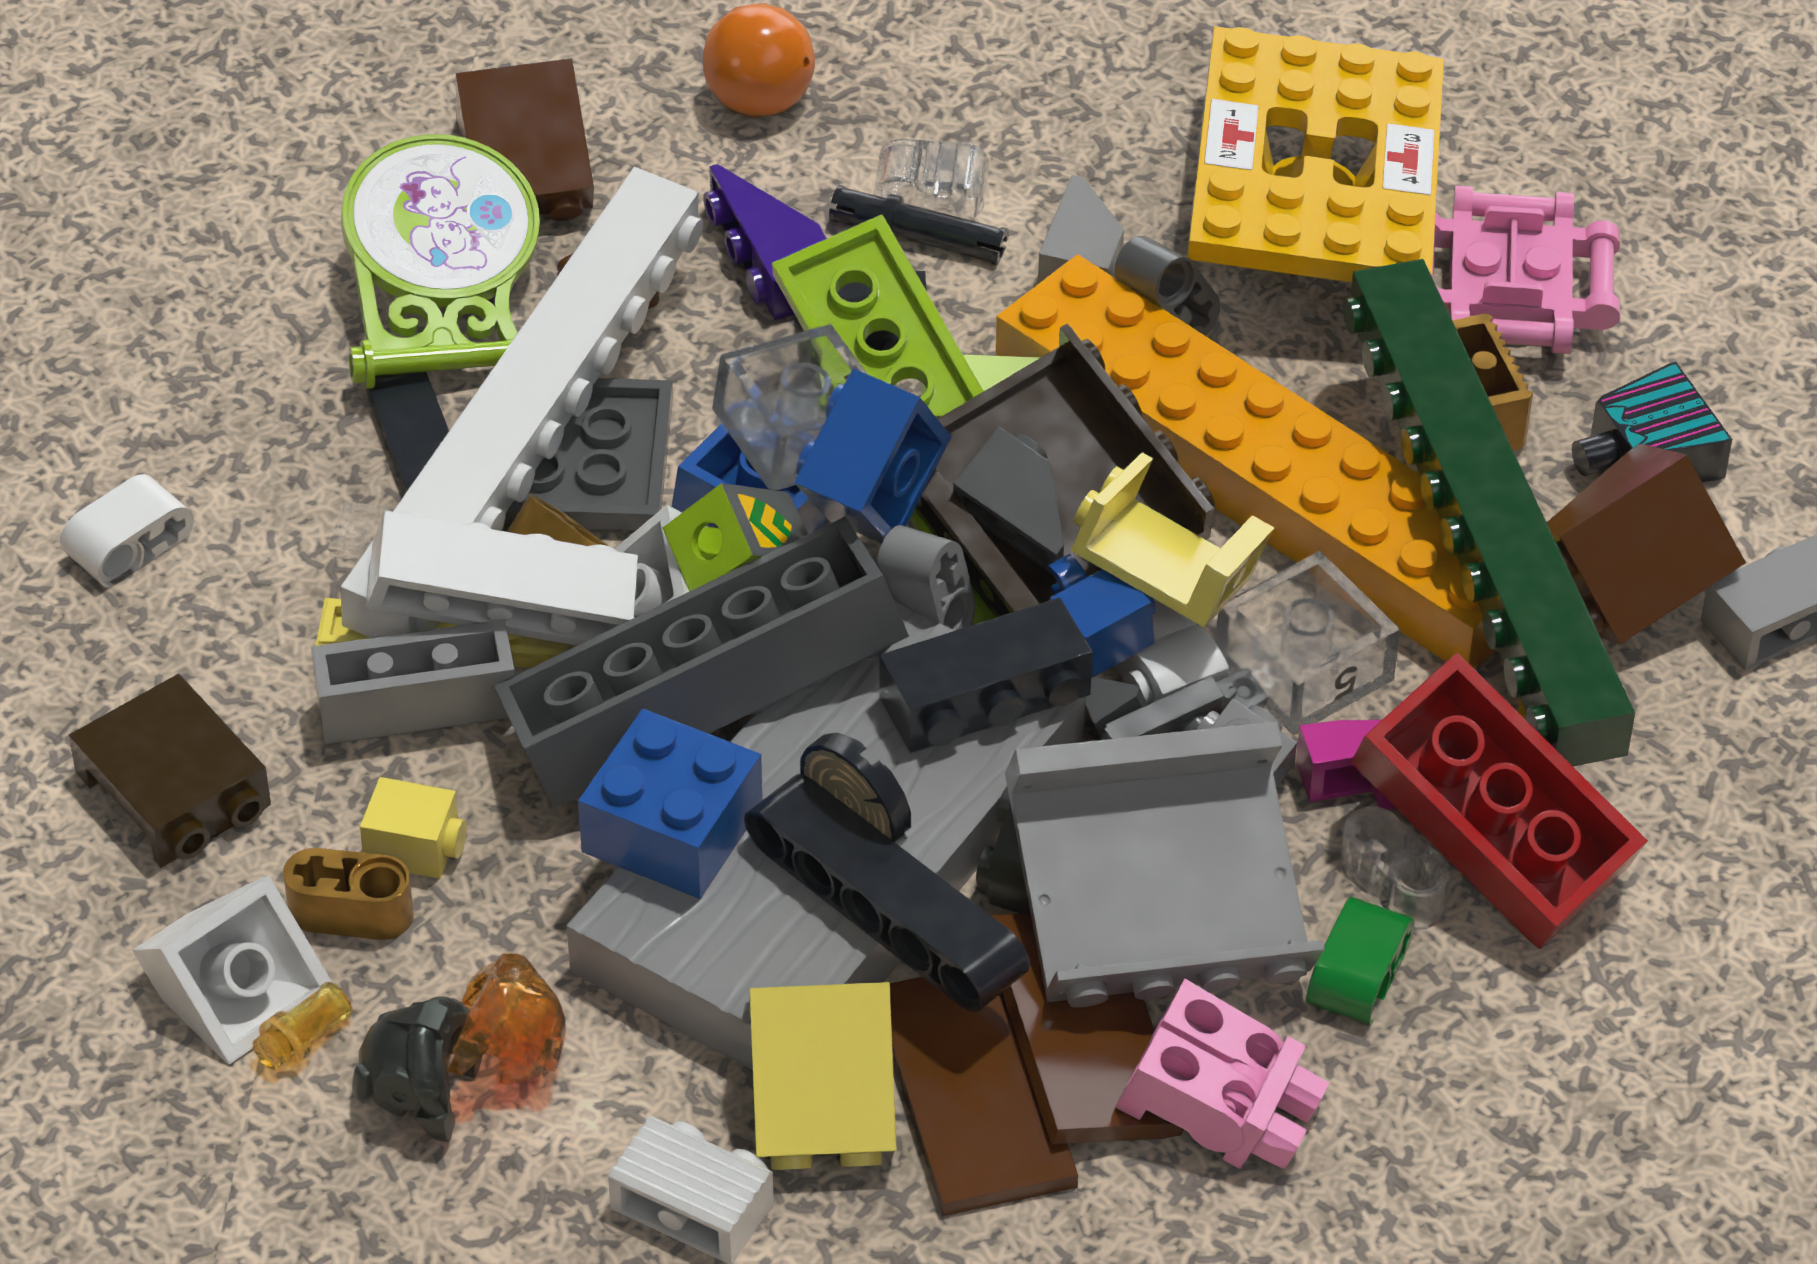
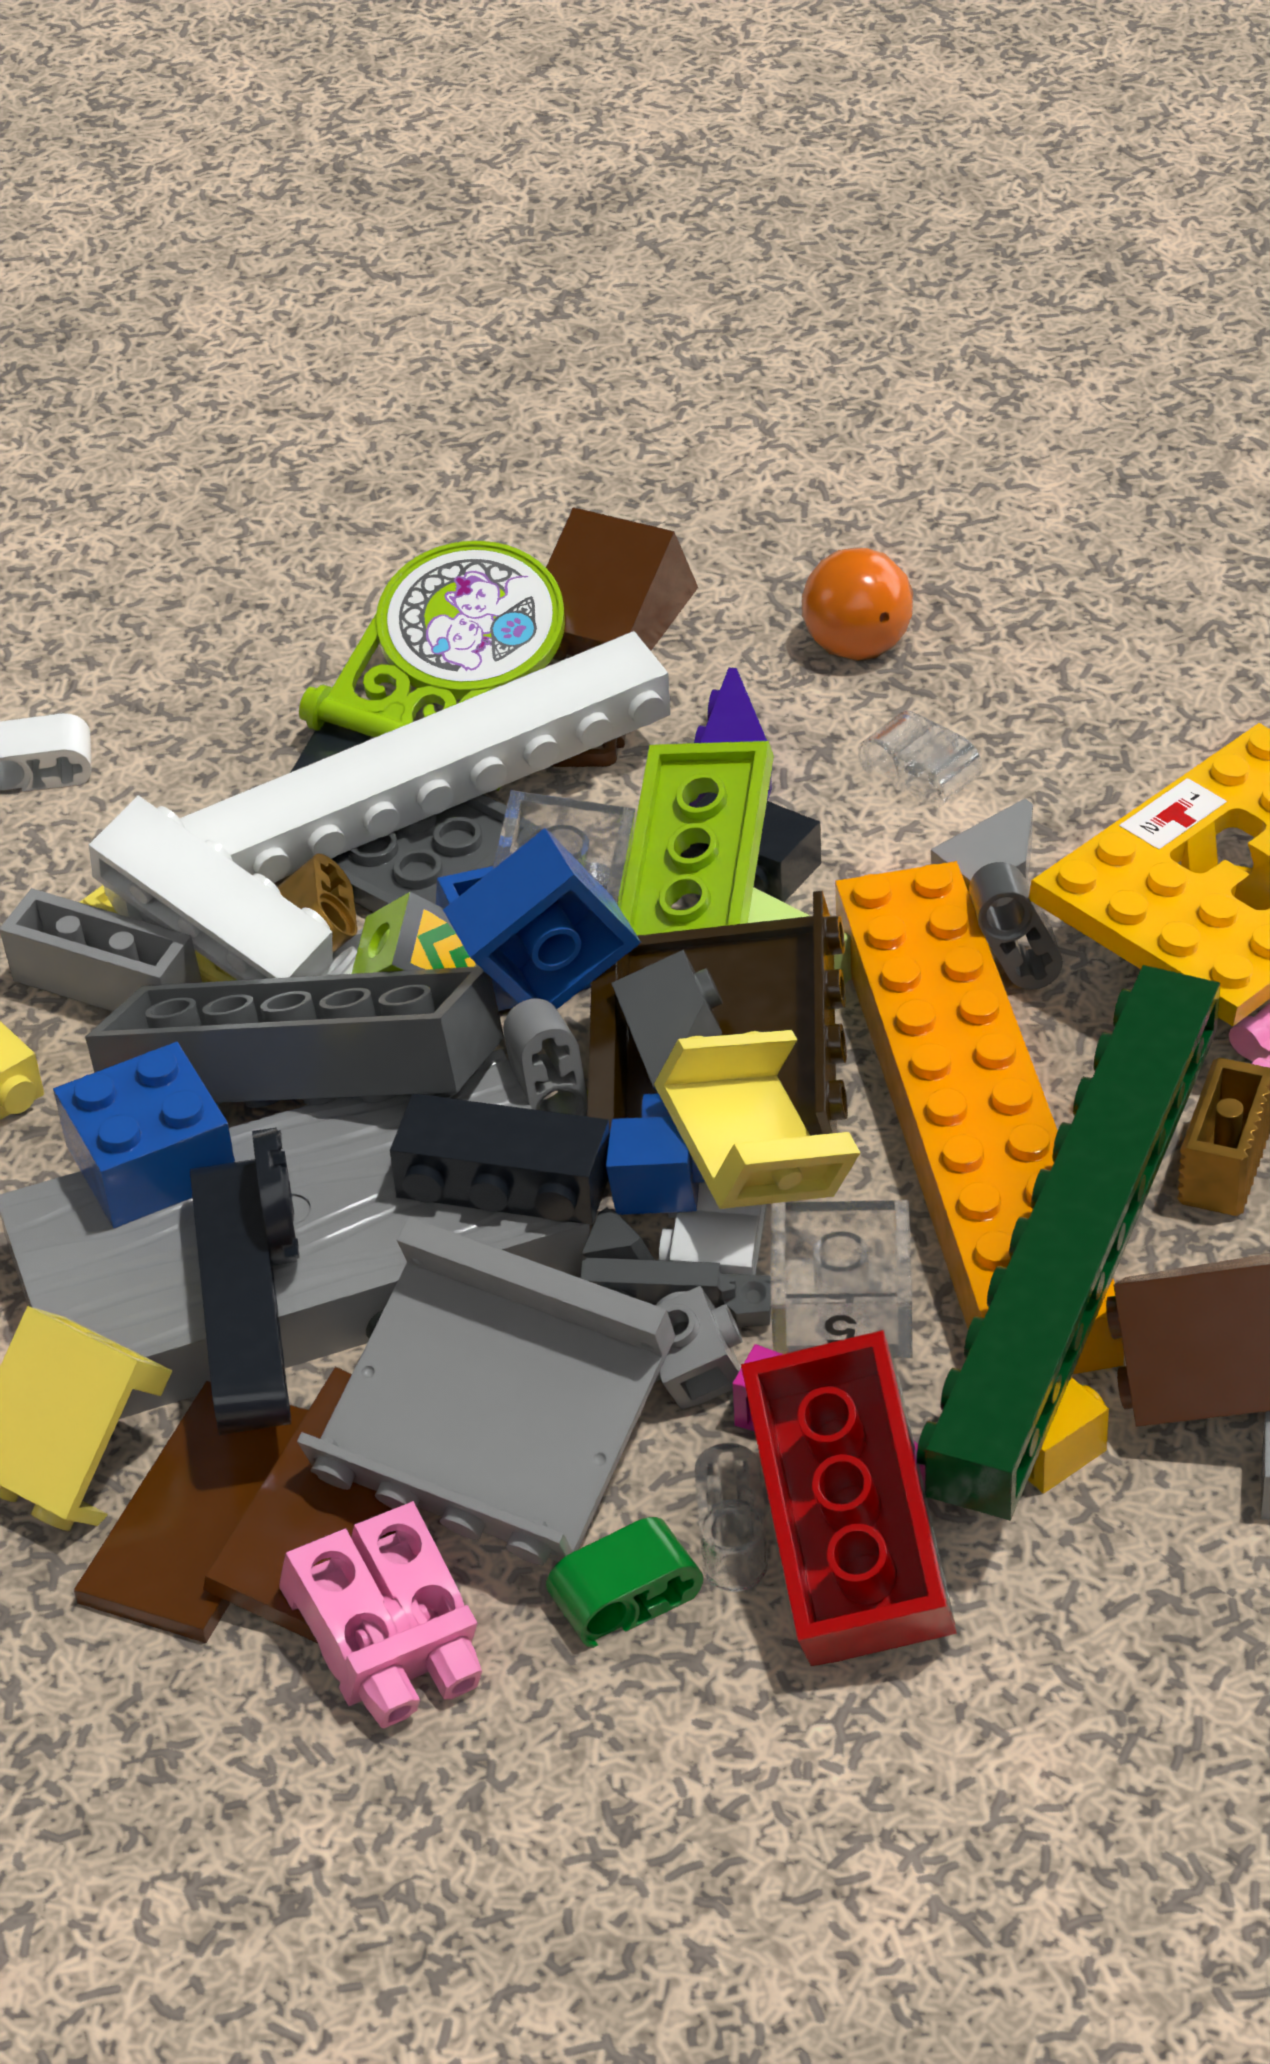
camera: 40 degrees right, 5 degrees down
(920, 224) = (861, 777): black pin -> none

